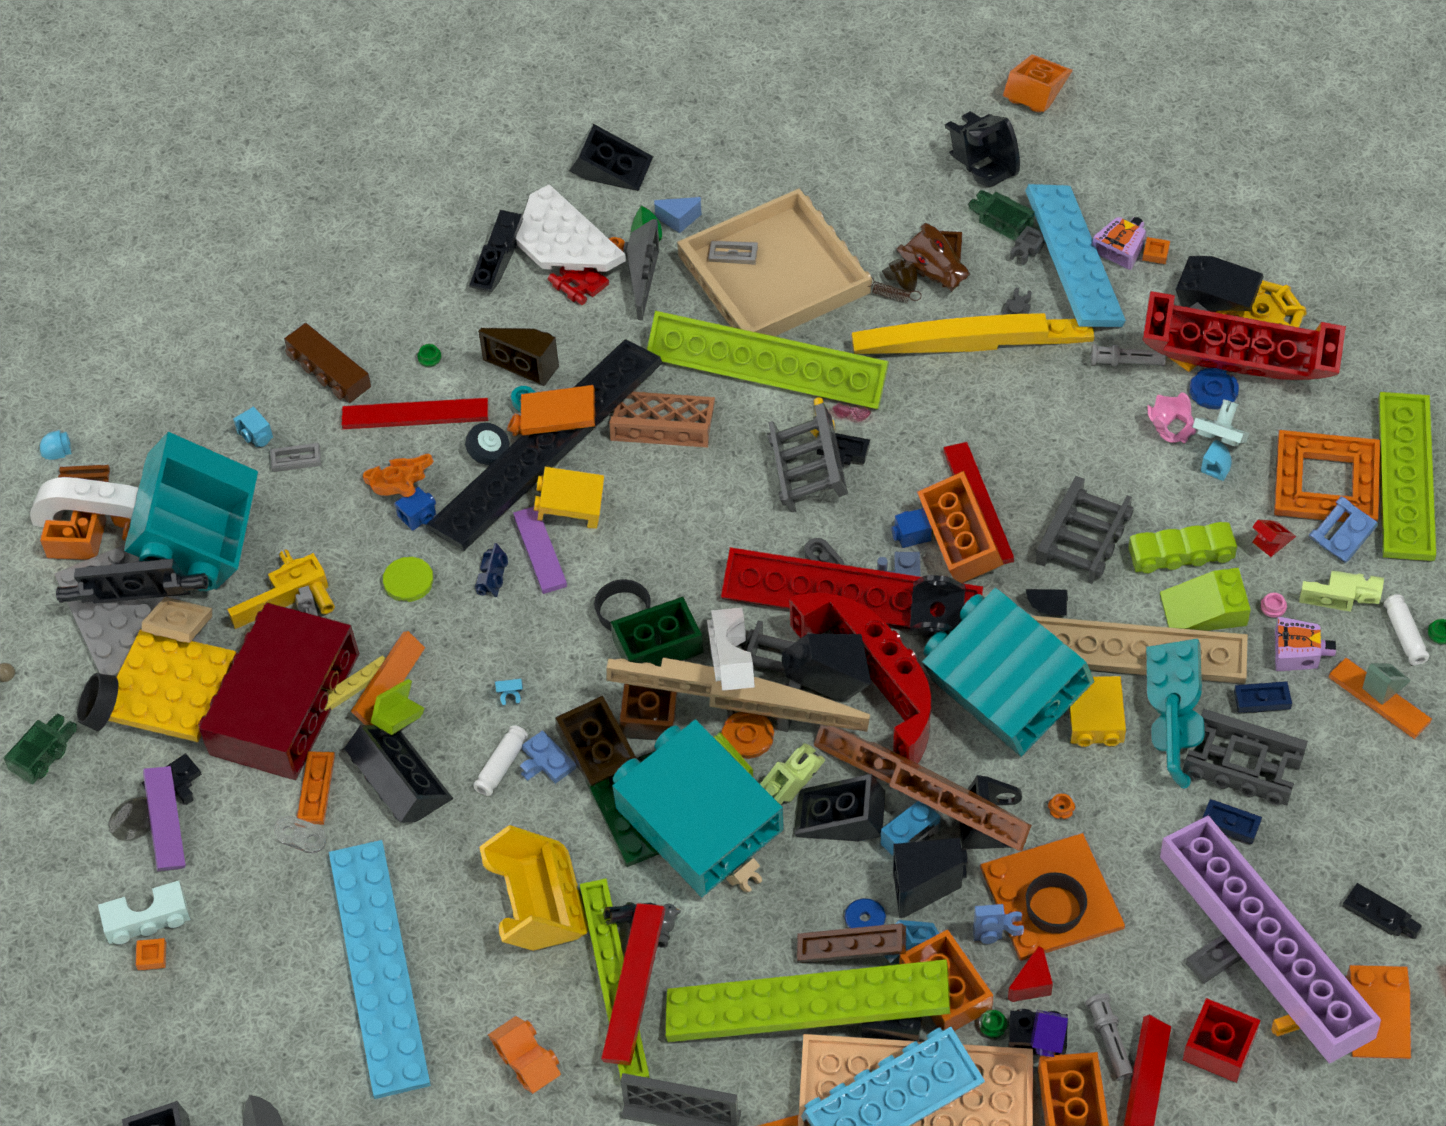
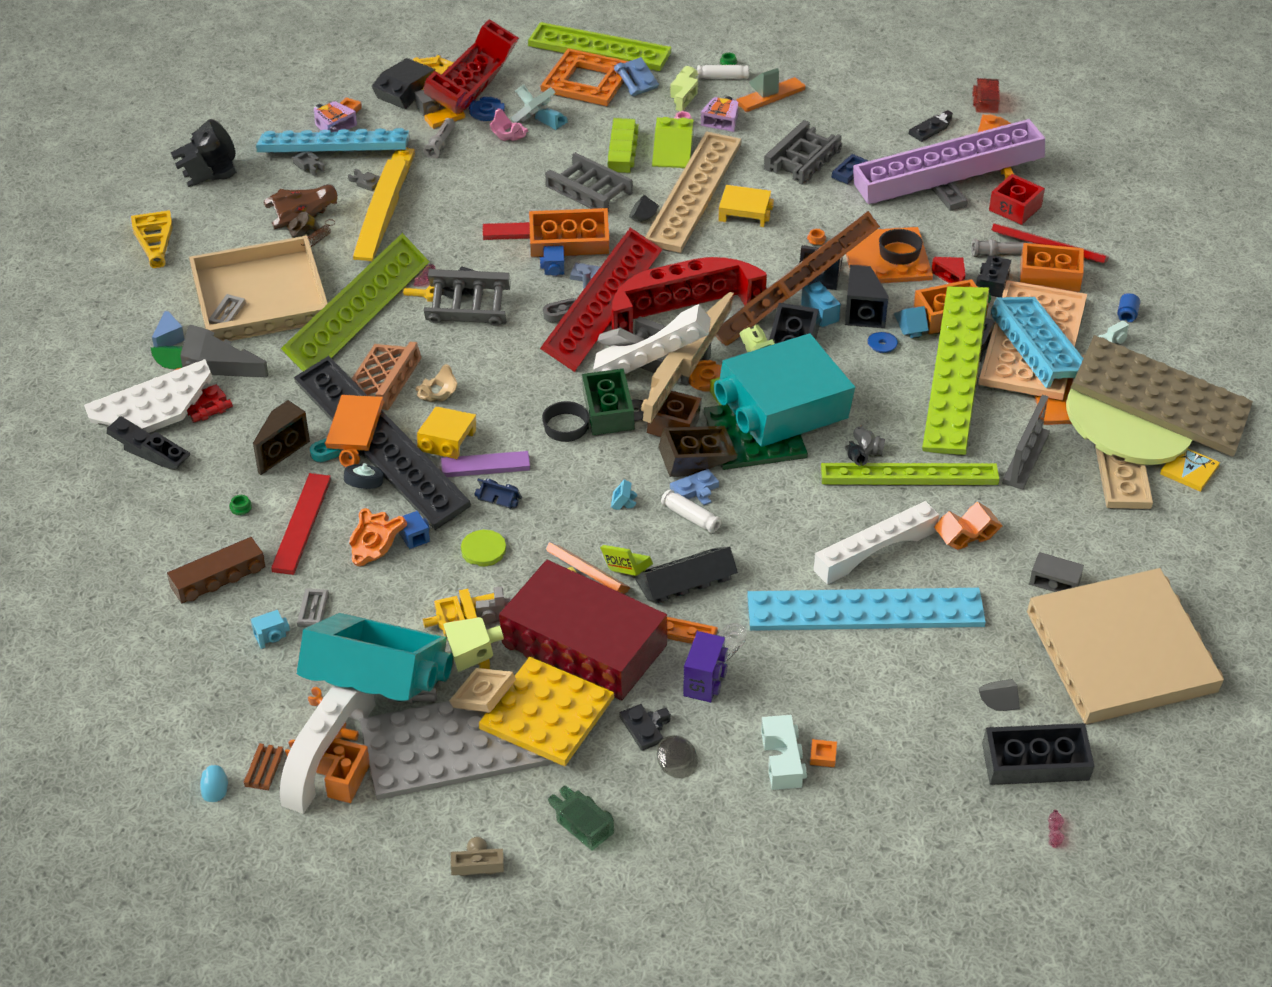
camera: 80 degrees left, 10 degrees down
(97, 701) = (567, 742): black tyre -> none
(130, 582) = (449, 672): black plate -> none
(164, 818) = (689, 728): medium lavender tile -> none
(236, 591) = (471, 641): none -> yellowish green torso
(242, 812) = (705, 667): none -> dark purple brick
(503, 979) = (845, 555): none -> white arch
(539, 888) = (828, 500): yellow windscreen -> none
(610, 160) = (80, 364): black slope -> none
(633, 984) = (922, 454): red tile -> none
(635, 464) = (444, 379): none -> tan helmet
(741, 620) = (619, 337): none -> light grey tile
(828, 664) = (674, 299): black slope -> none
(851, 943) = (912, 341): reddish brown plate -> none
(861, 134) = (150, 222): none -> yellow plate
(932, 590) = (634, 244): black hose -> none
(991, 921) = (912, 271): medium blue plate -> none
(1002, 214) = (273, 167): clear green hinge -> none
(1006, 670) = (711, 221): teal brick -> none
(1036, 83) = (150, 128): orange slope -> none
(1048, 1032) = (1013, 250): dark purple brick -> none
(1173, 676) = (735, 160): teal plate -> none
(1262, 697) = (756, 137): dark blue plate -> none
(1271, 536) = (628, 106): red slope -> none

